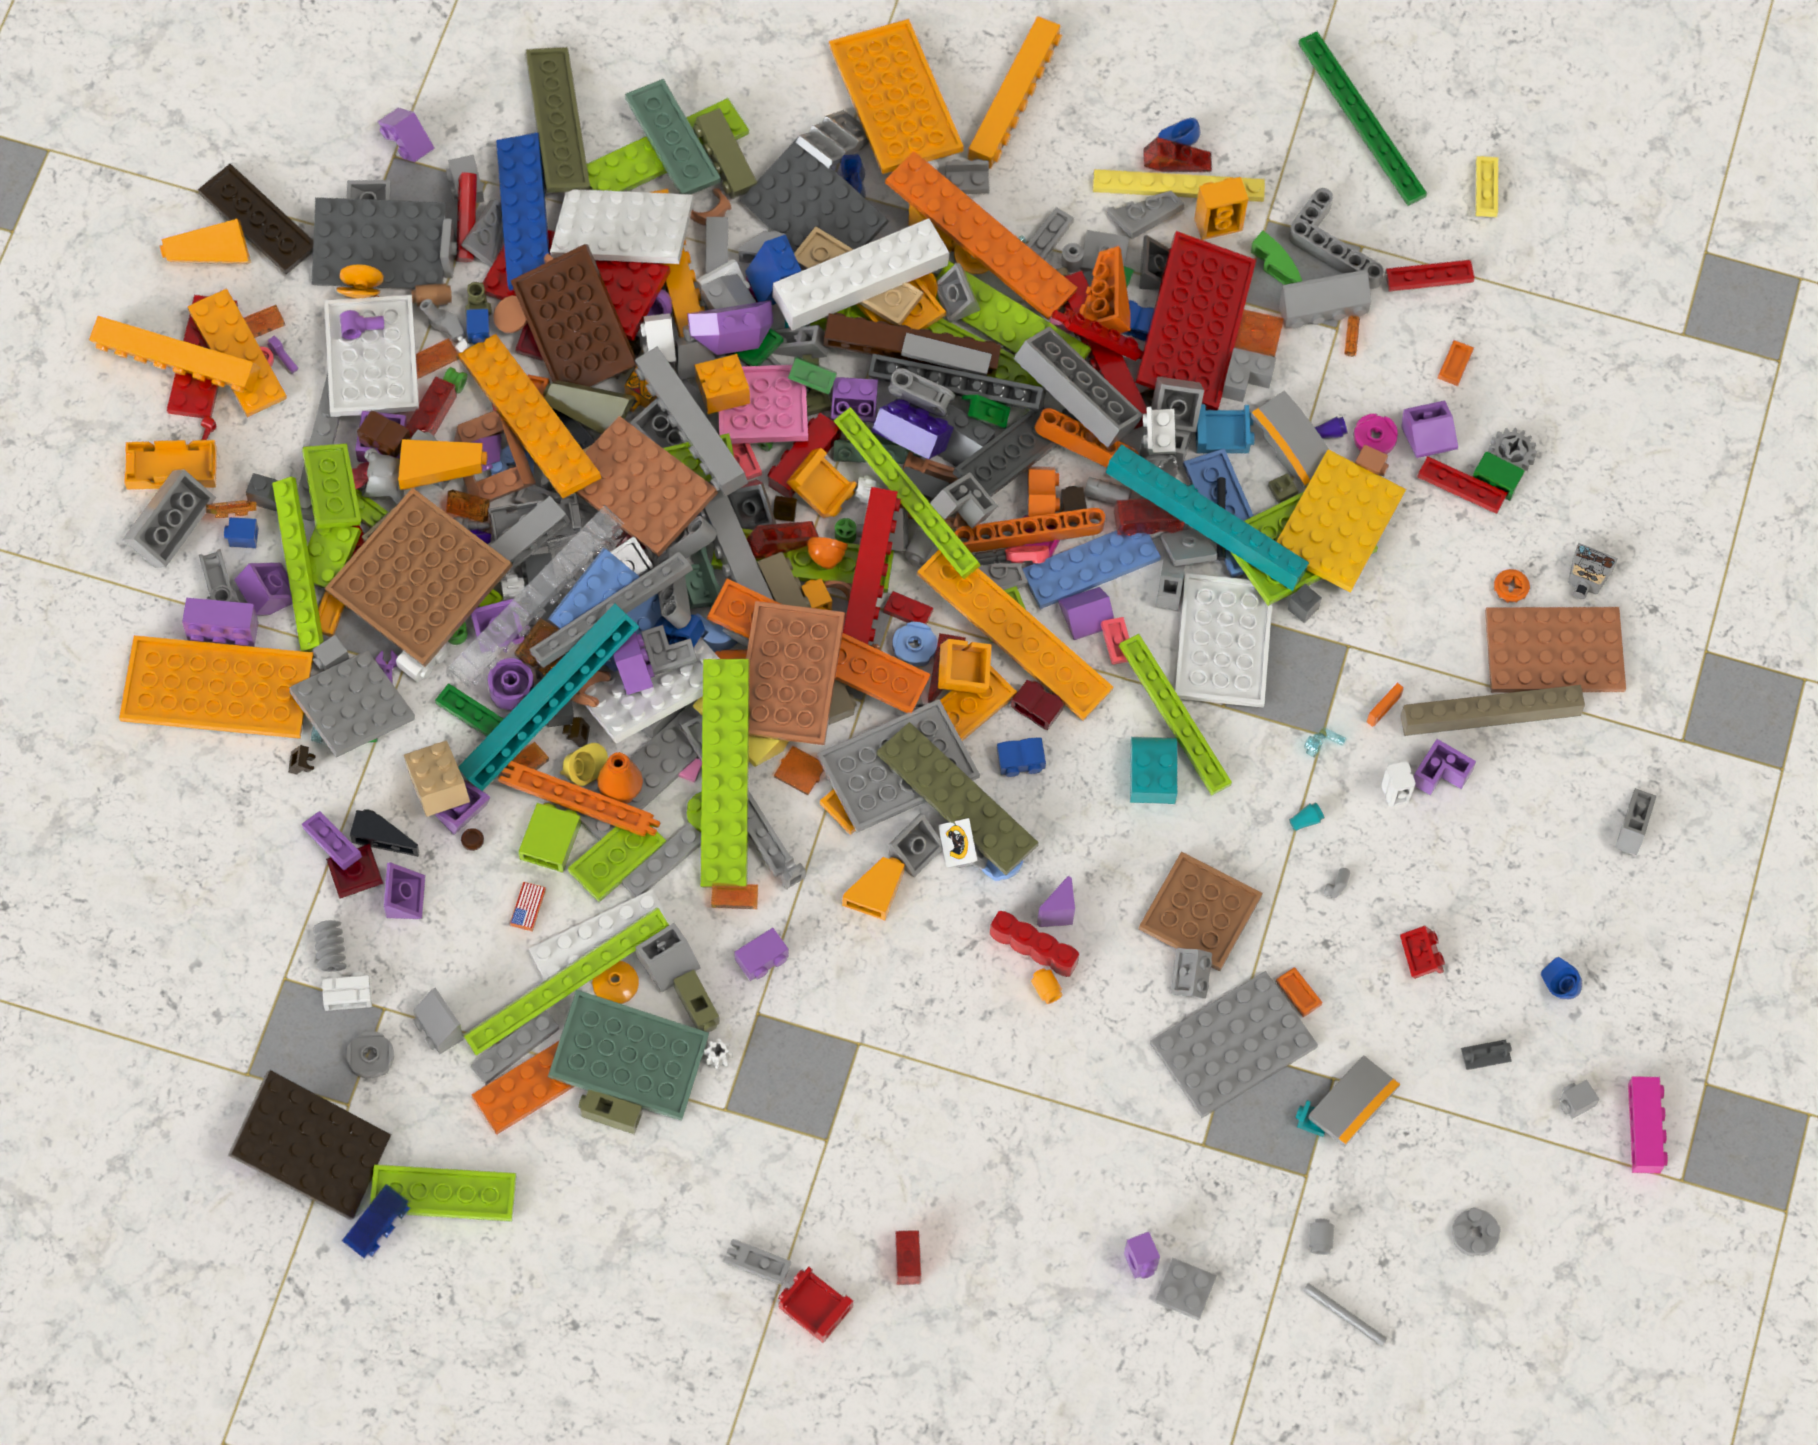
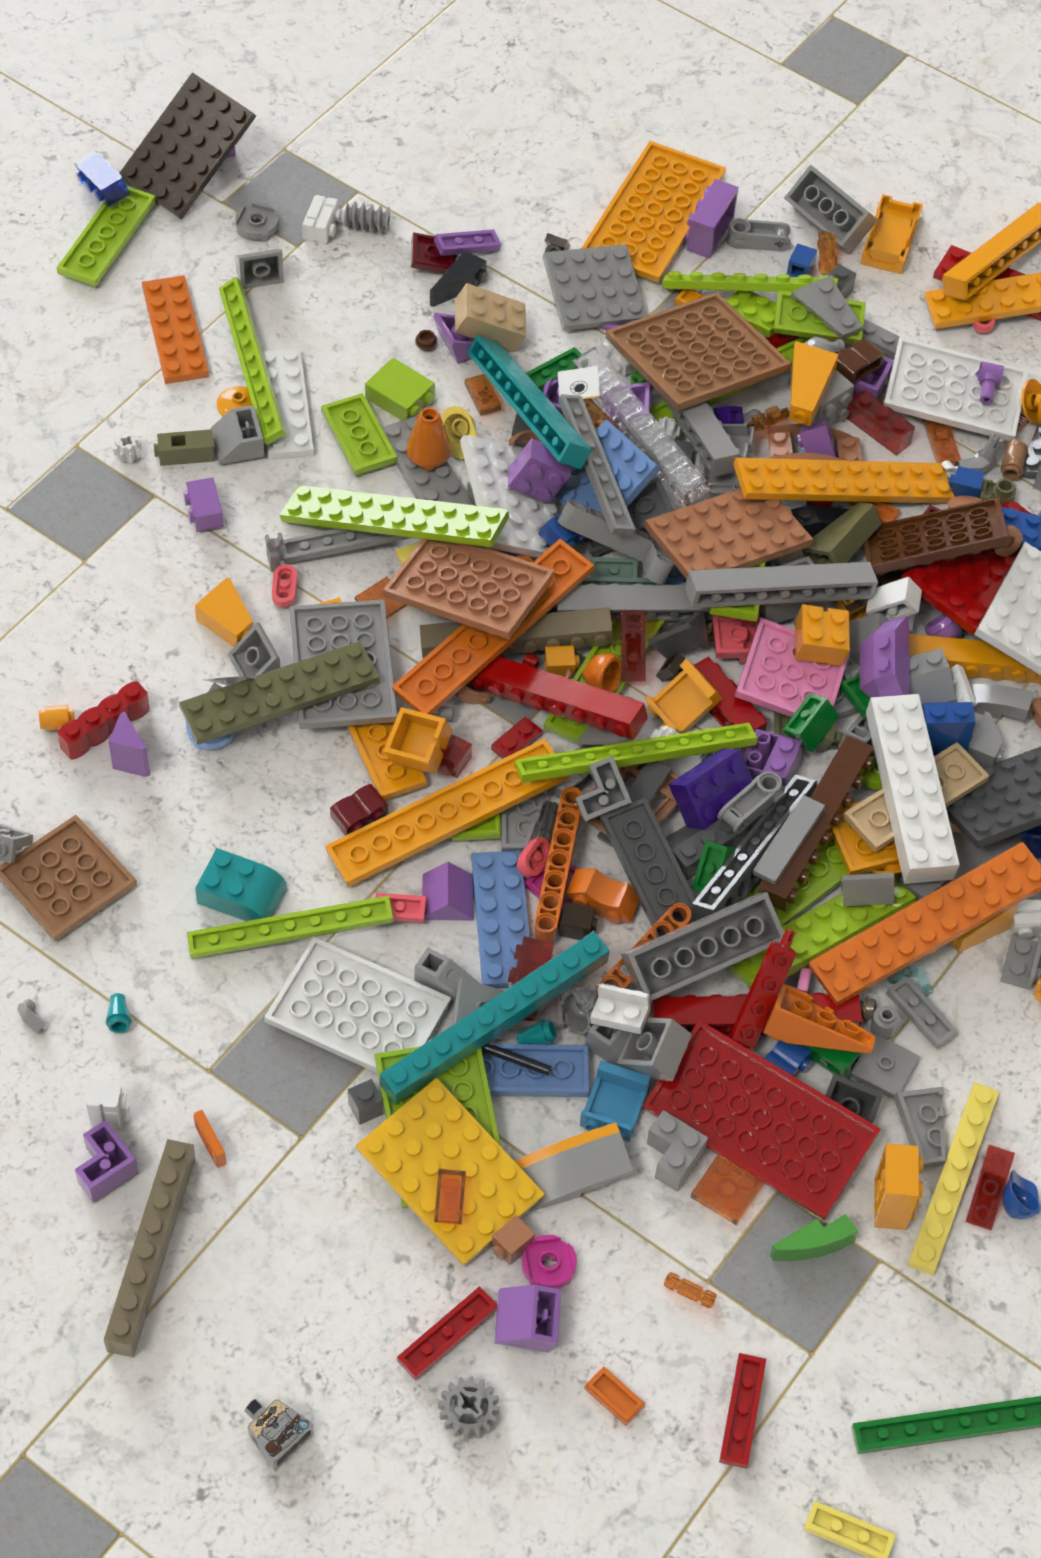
camera: 110 degrees right, 10 degrees down
(209, 425) = (924, 271): red hand -> none
(264, 321) = (1024, 333): clear orange plate -> none
(265, 587) = (738, 259): medium lavender slope -> none
(278, 349) = (992, 333): medium lavender bar -> none
(321, 476) = (830, 306): none -> light grey wing
(329, 653) = (652, 290): light grey brick -> none
(403, 893) = (396, 275): medium lavender slope -> none
(456, 378) = (911, 450): bright green wheel -> none
(501, 667) = (579, 382): none -> white sticker
(515, 1047) = (213, 317): light grey plate -> none
(528, 906) = (342, 361): tile -> none
(577, 732) = (497, 434): dark brown tile -> none
(579, 799) = (440, 398): orange hinge -> none
(610, 1111) = (115, 359): olive brick -> none
(628, 1054) = (158, 380): sand green plate -> none
(663, 861) = (336, 462): light grey plate -> none
(665, 656) = (536, 500): light grey plate -> none
(734, 896) = (274, 504): clear orange plate -> none
(821, 852) = (283, 587): none -> coral plate
(907, 634) = (475, 718): light blue plate -> none
(1021, 756) = (308, 777): blue brick -> none
(1283, 488) = (520, 1140): olive tile -> none
(1314, 743) = (196, 1051): clear light blue plate -> none
(1325, 299) = (741, 1268): light grey slope -> none
(1329, 243) = (821, 1307): light grey beam -> none
(1333, 428) = (573, 1219): dark purple cone -> none
(1366, 506) = (450, 1196): none -> clear orange tile
(1499, 473) = (442, 1374): green panel -> none
(1520, 581) = (296, 1325): orange gear -> none
(1555, 648) = (197, 1355): nougat plate -> none

